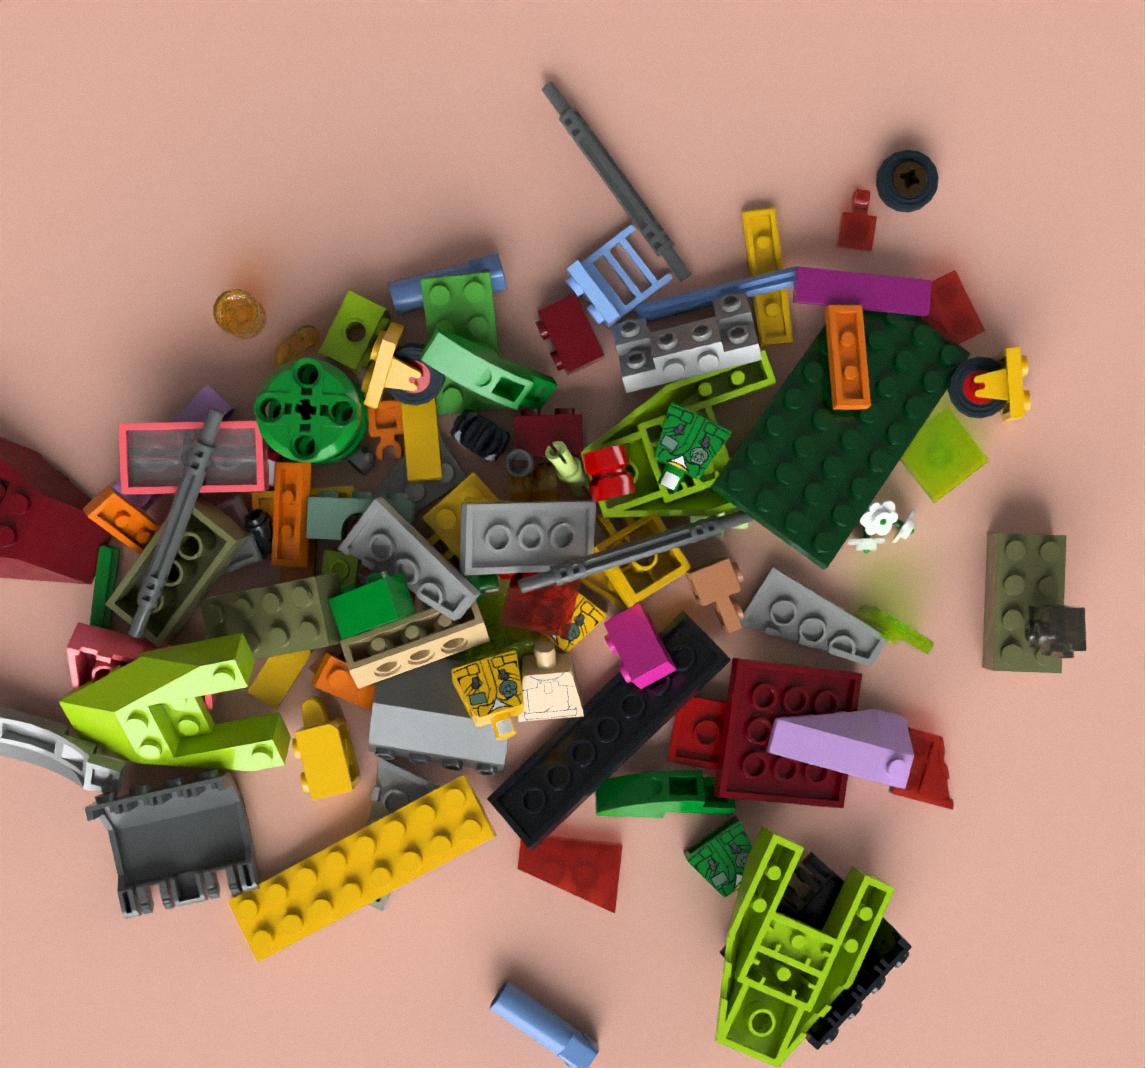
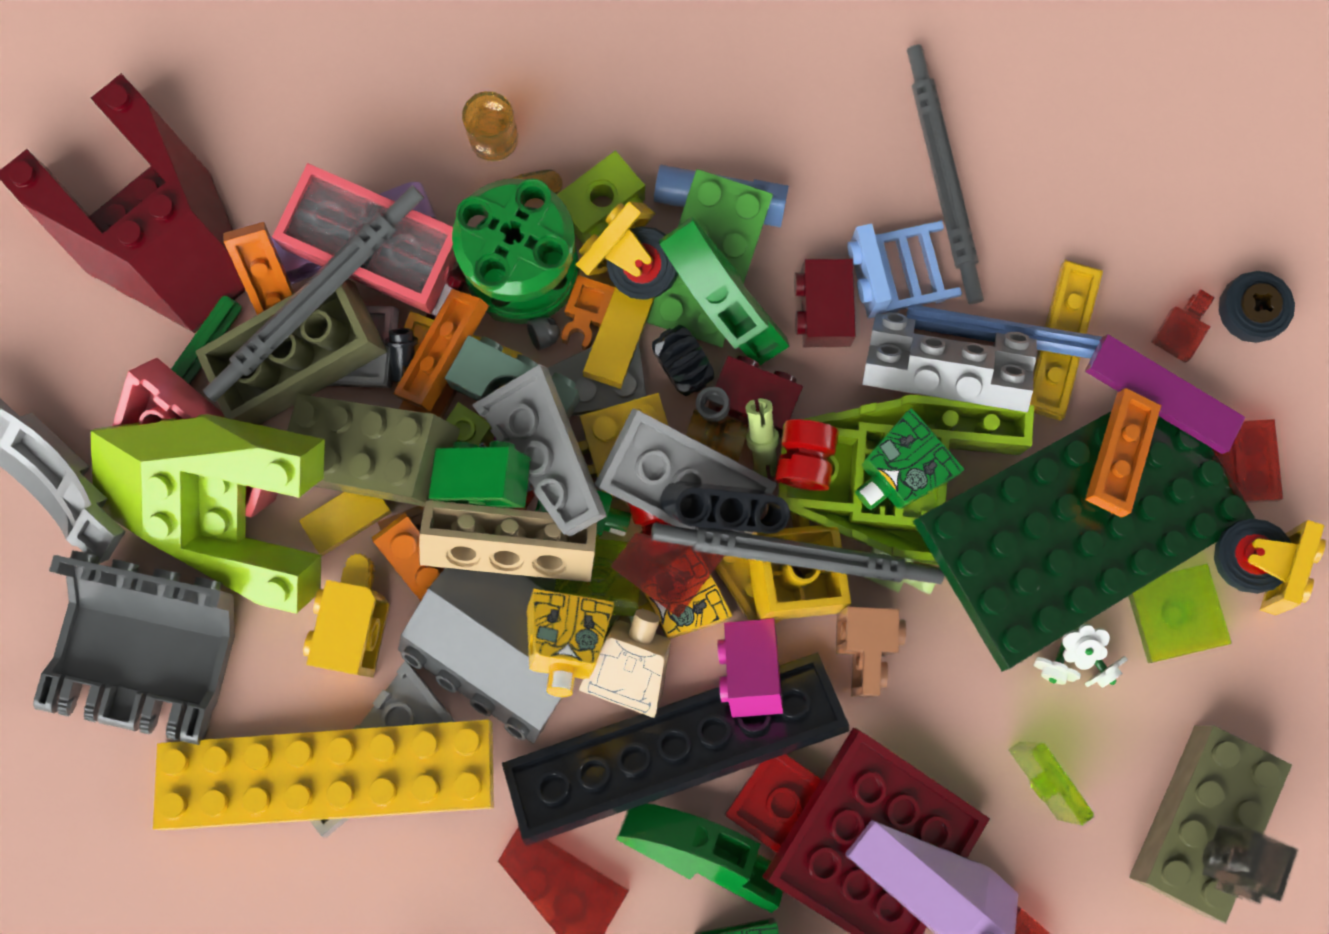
camera: 20 degrees right, 10 degrees down
(580, 542) = (743, 509): none -> black beam
(801, 615) = (950, 722): light grey wing -> none

